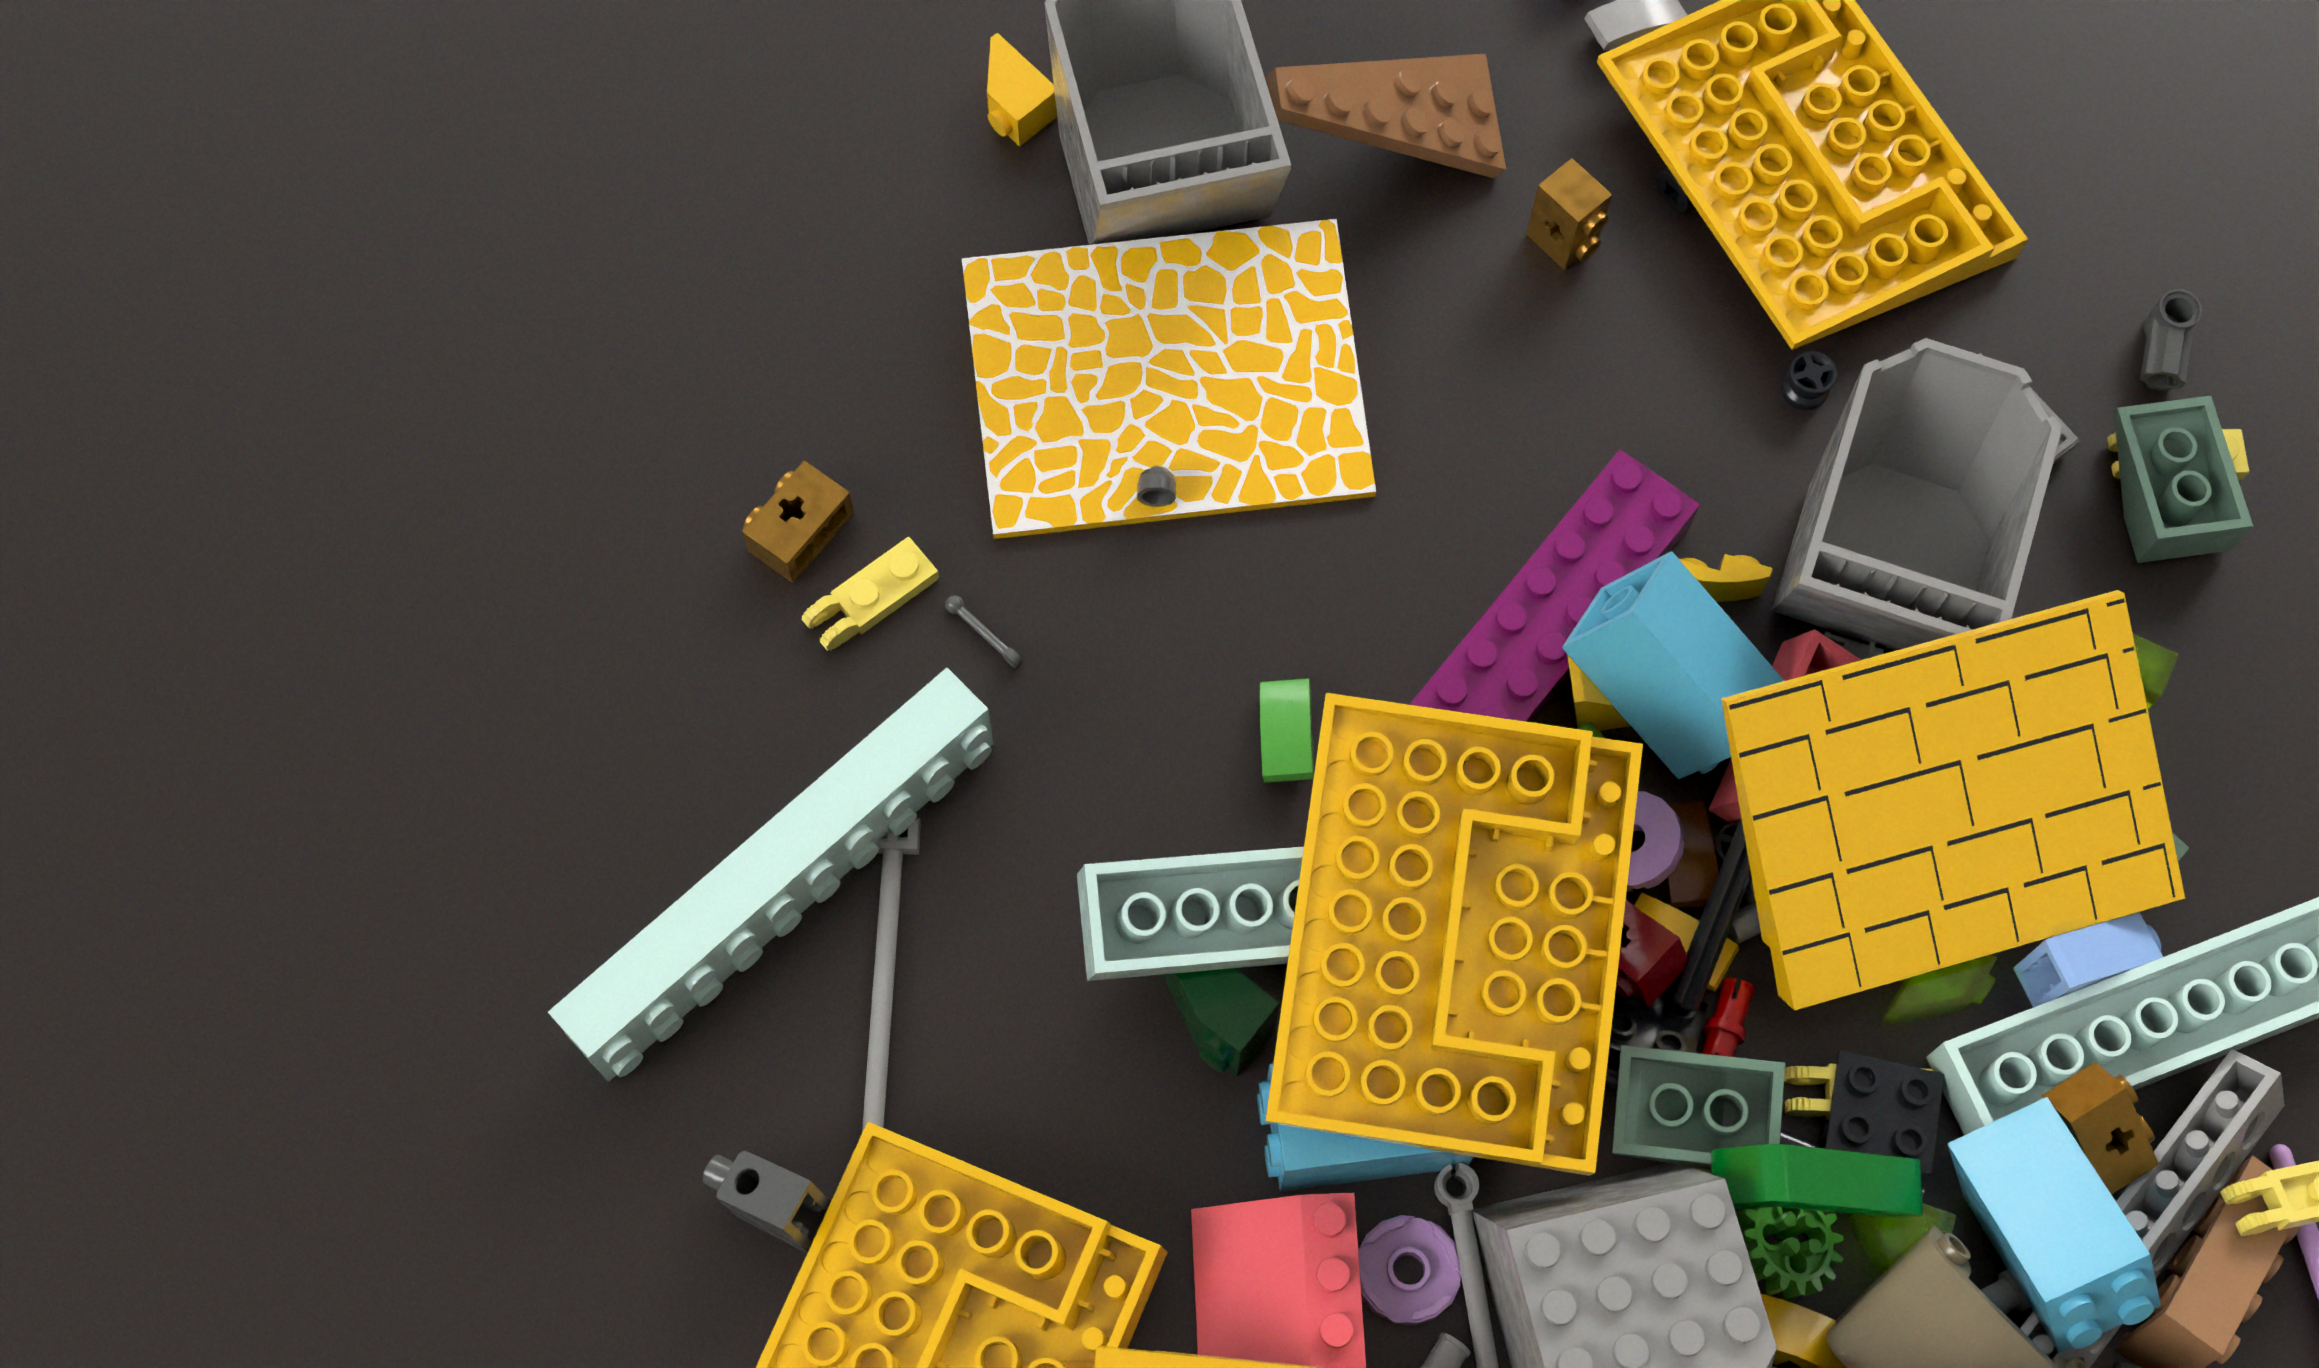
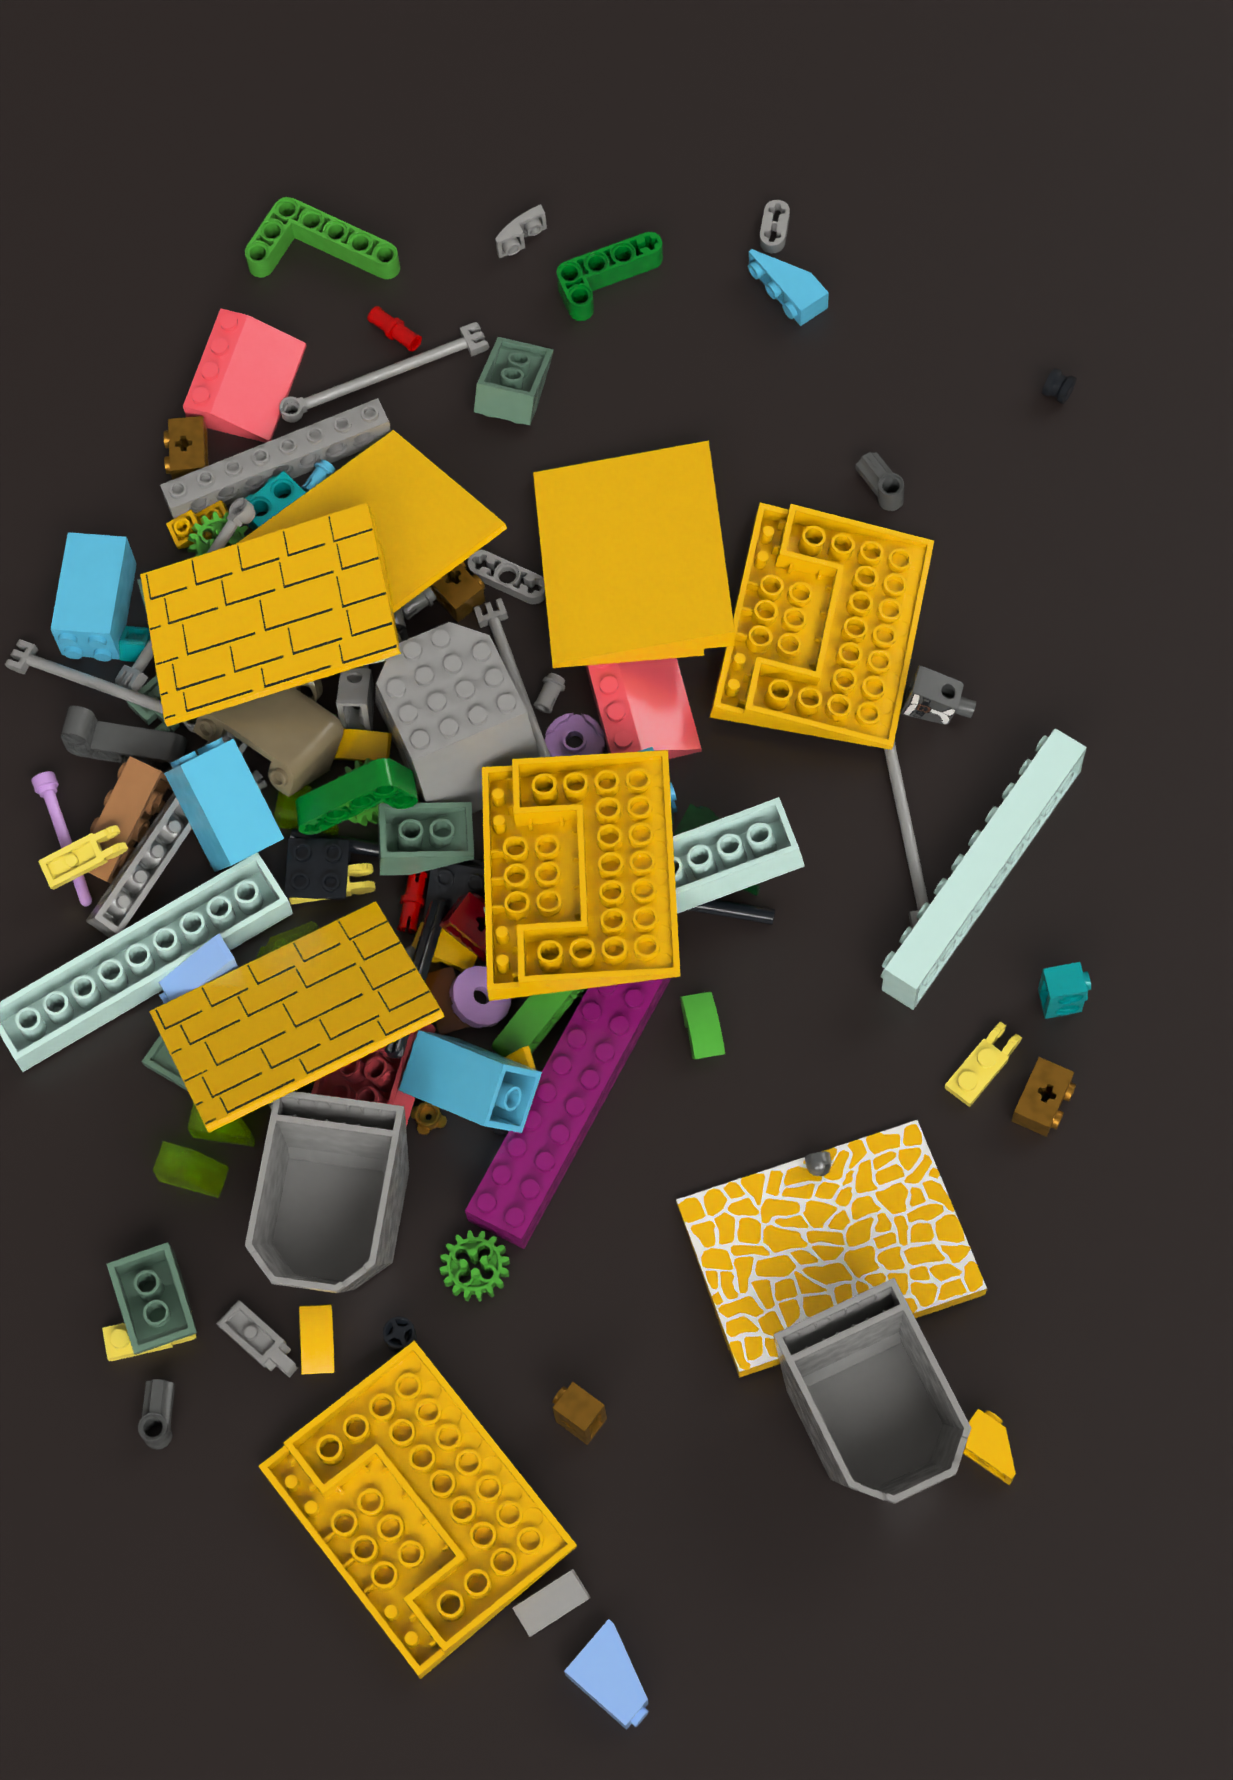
camera: 175 degrees right, 0 degrees up
(716, 653) = (1063, 989): none -> teal brick
(955, 605) = (928, 1069): dark grey hinge -> none
(1409, 106) = (704, 1465): medium nougat wing -> none
(1717, 447) = (493, 1262): none -> bright green gear
(1735, 579) = (437, 1179): yellow slope -> none
(2105, 1124) = (196, 866): pearl gold brick -> none

